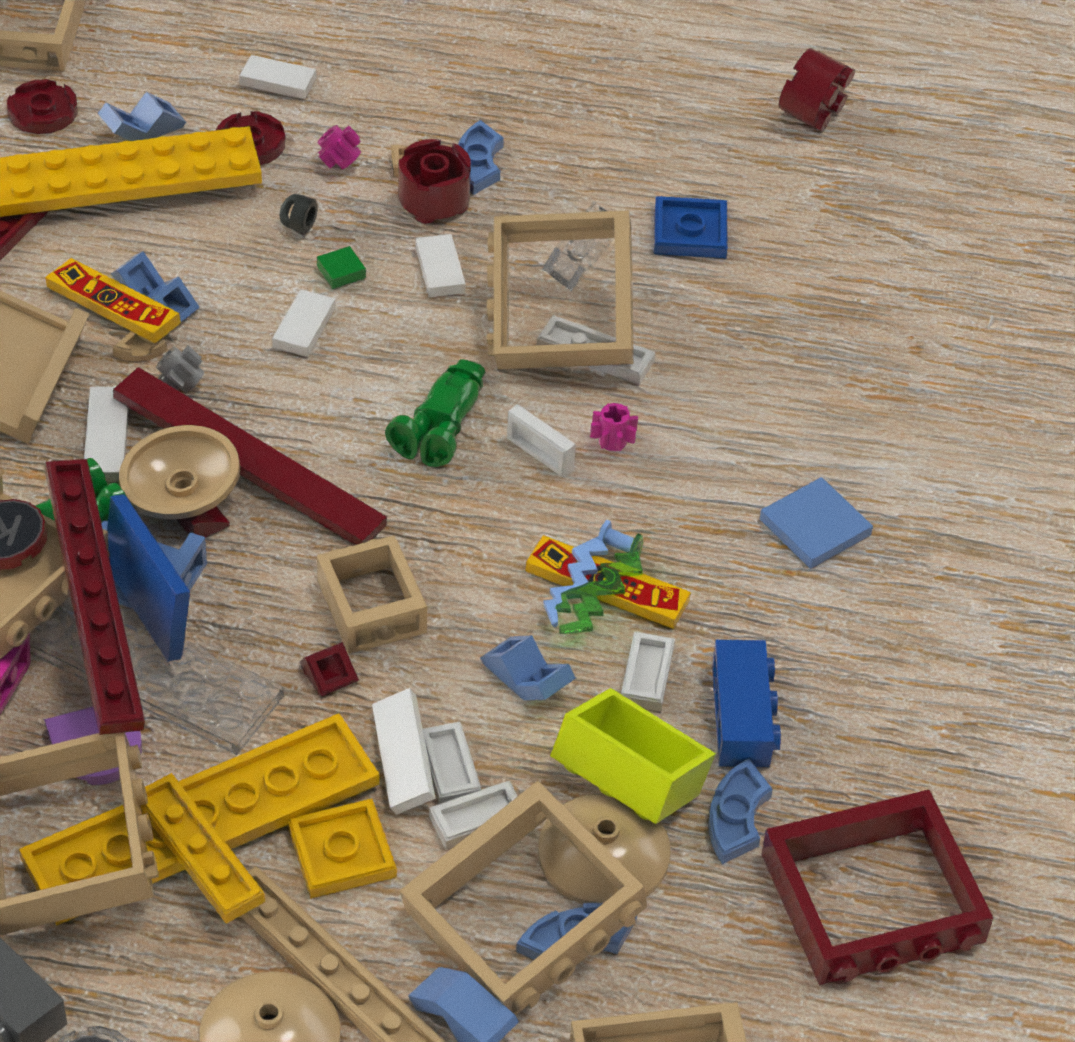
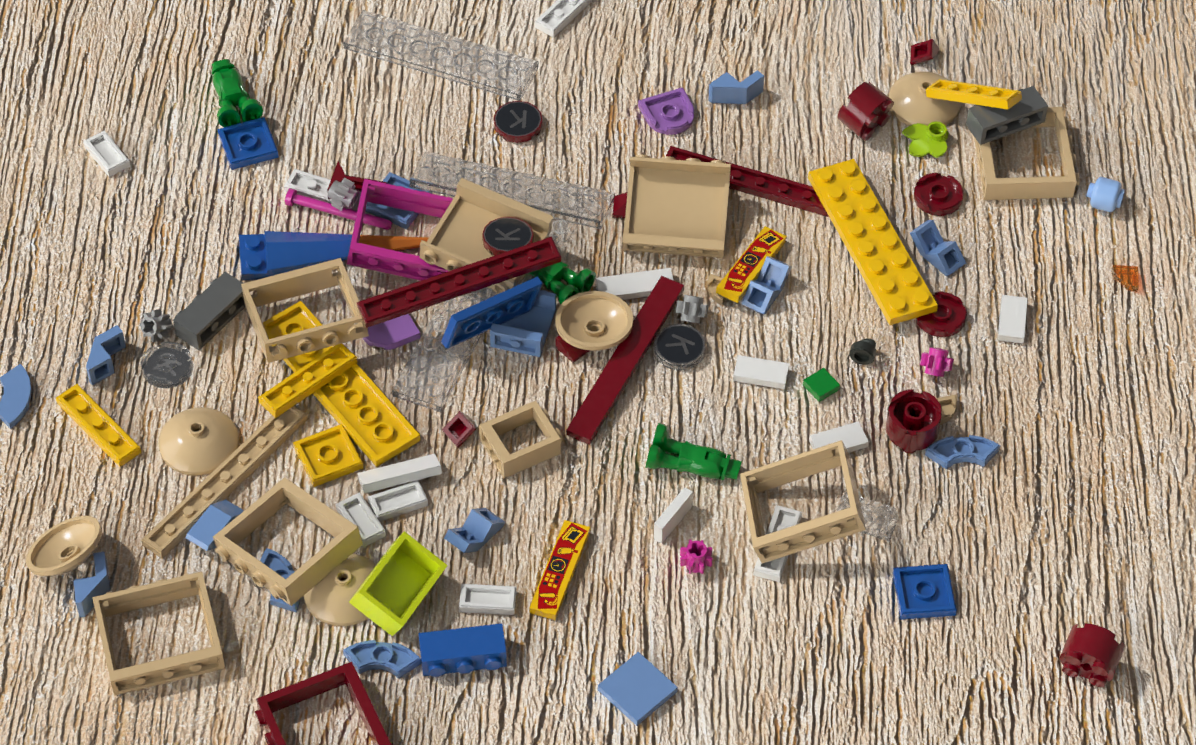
camera: 85 degrees right, 5 degrees up
(239, 397) = (679, 346): none -> black tile
(627, 565) = (543, 555): piece -> none

